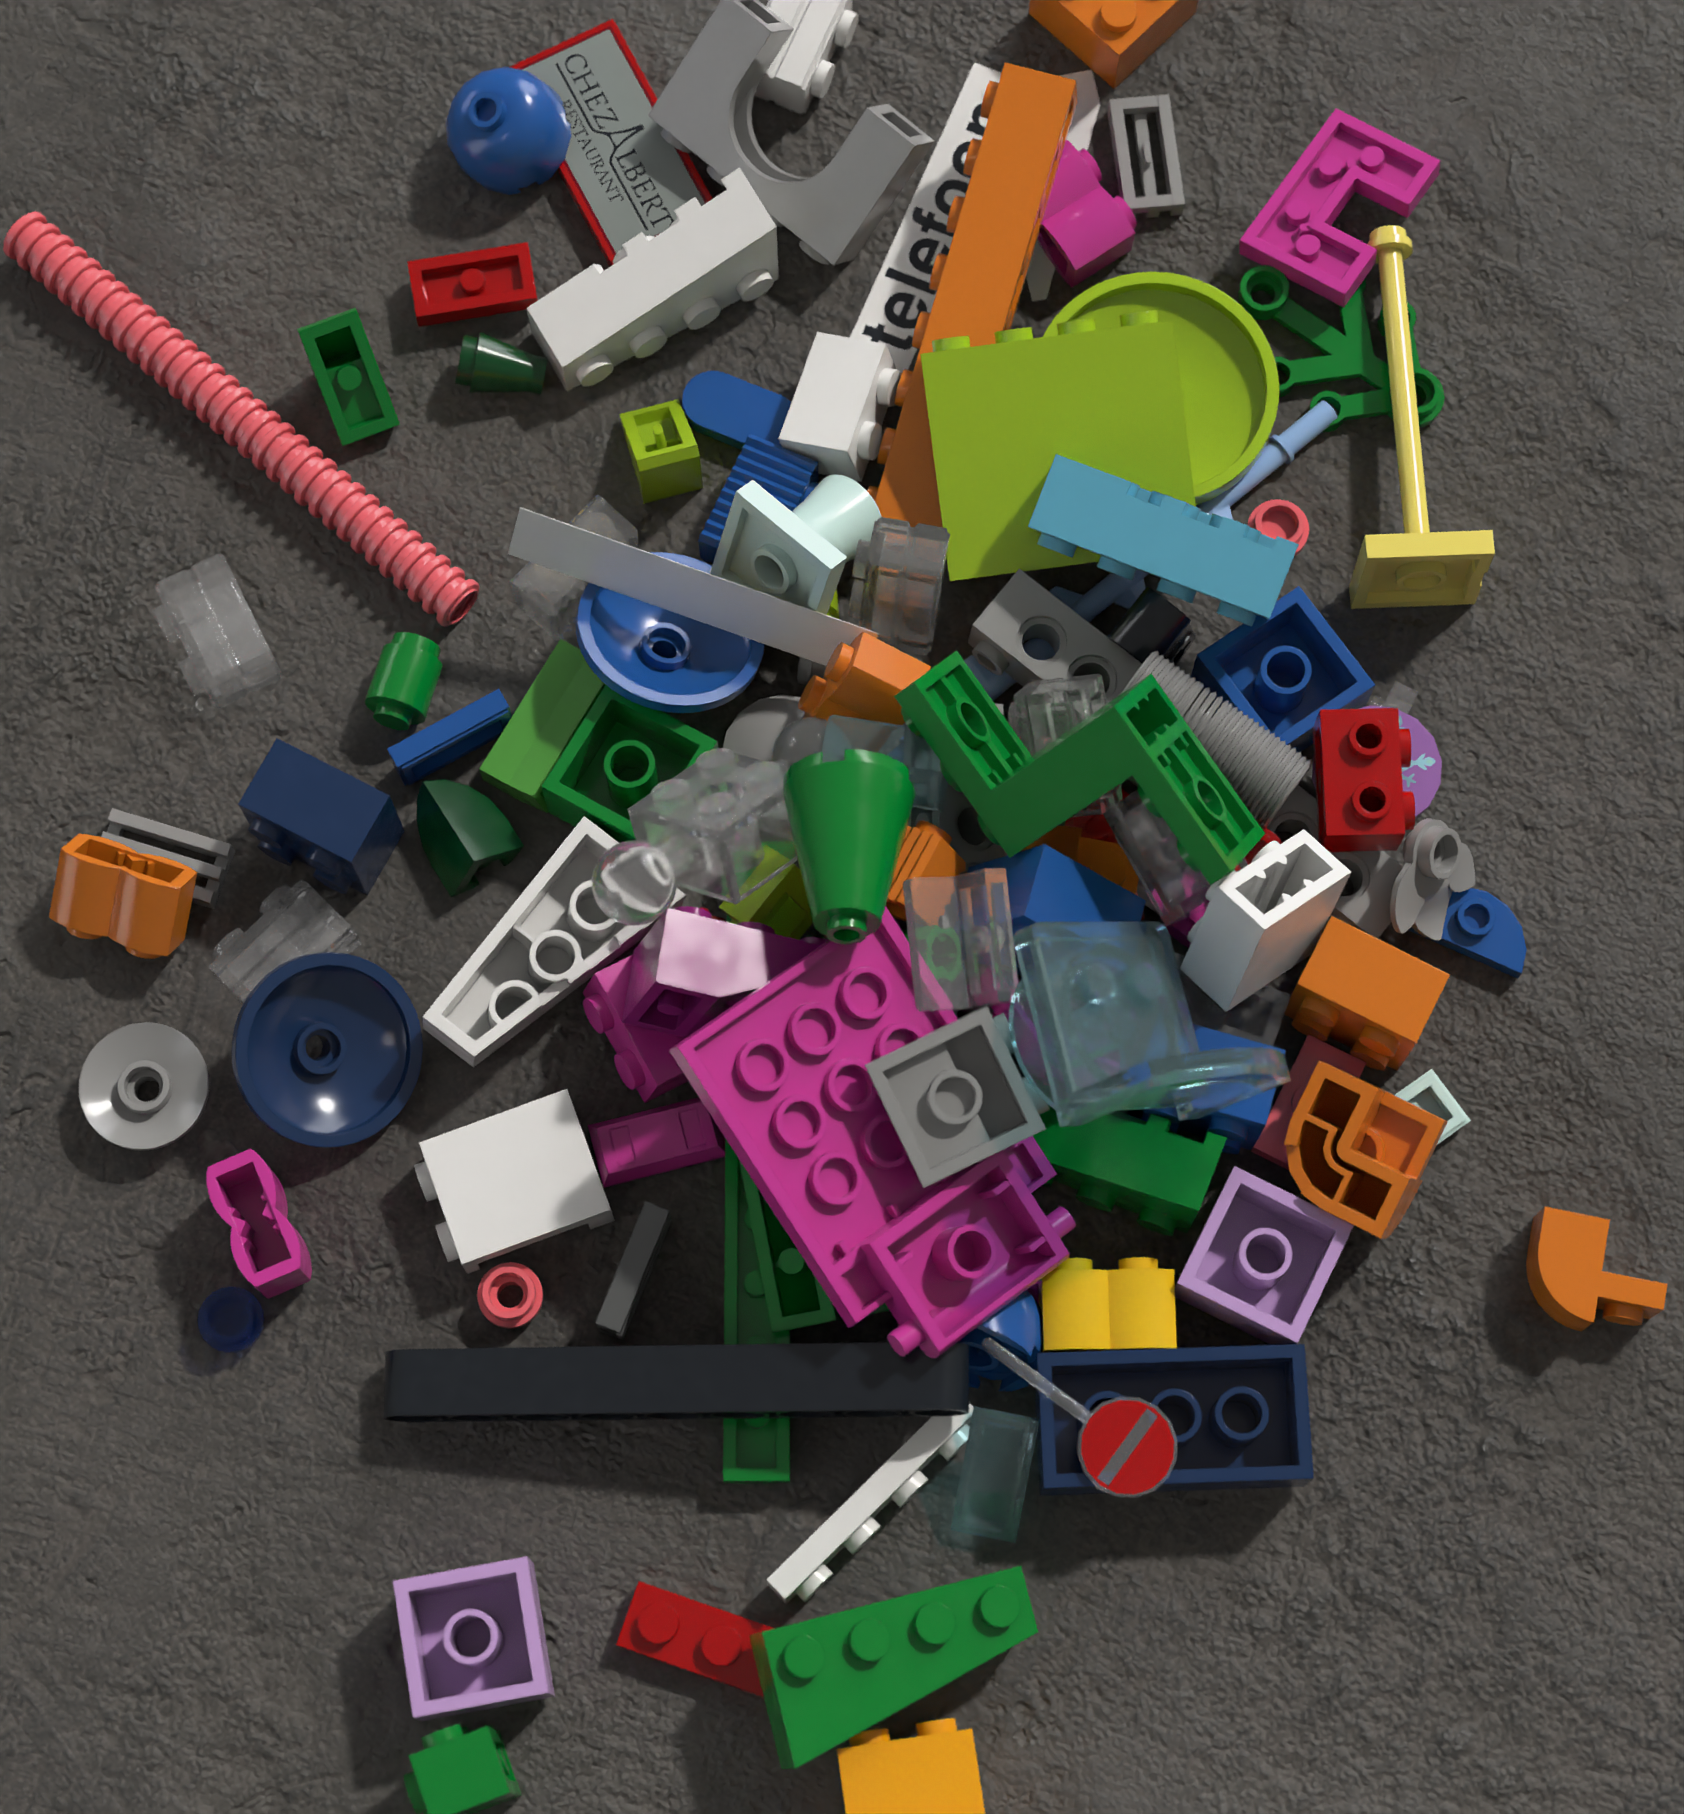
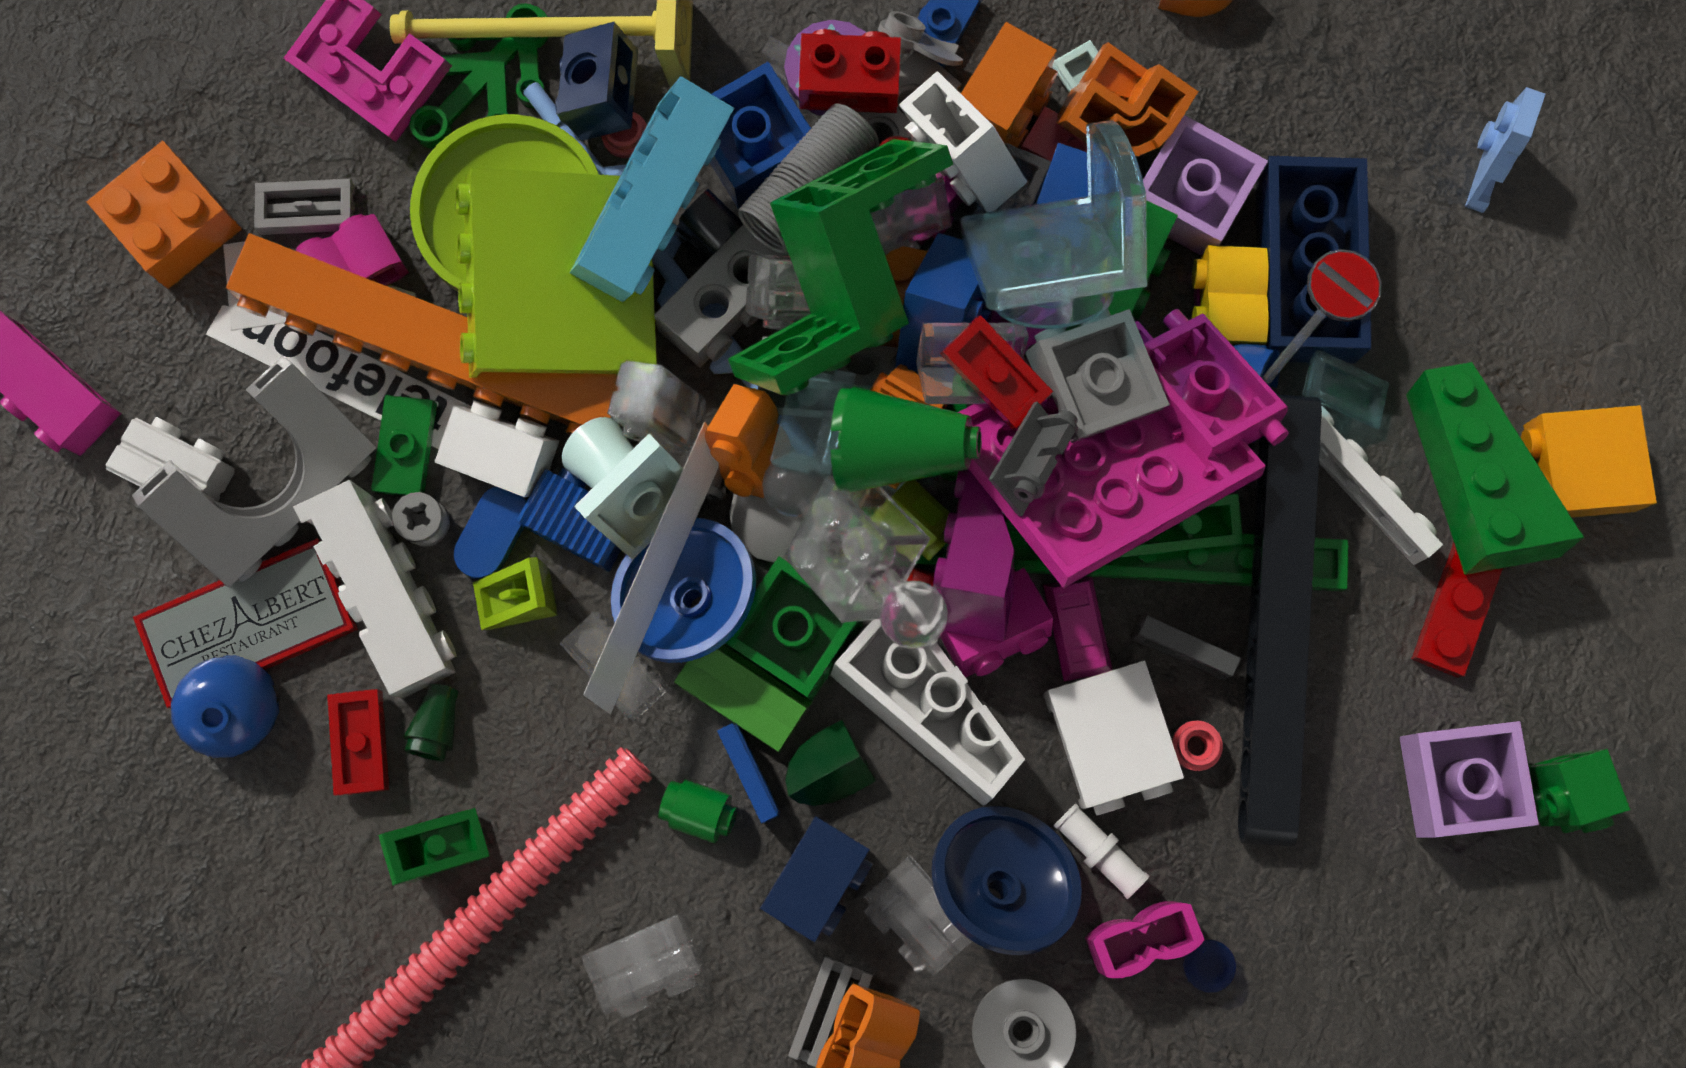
camera: 85 degrees left, 5 degrees up
(370, 1176) = (1101, 851): none -> white pin
(750, 344) = (429, 526): none -> light grey wheel
(834, 1001) = (1031, 456): none -> dark grey hinge
(843, 302) = (404, 445): none -> green plate
(944, 959) = (995, 371): none -> red plate
(1335, 482) = (597, 81): none -> brick
(1373, 1684) = (1503, 144): none -> light blue wing

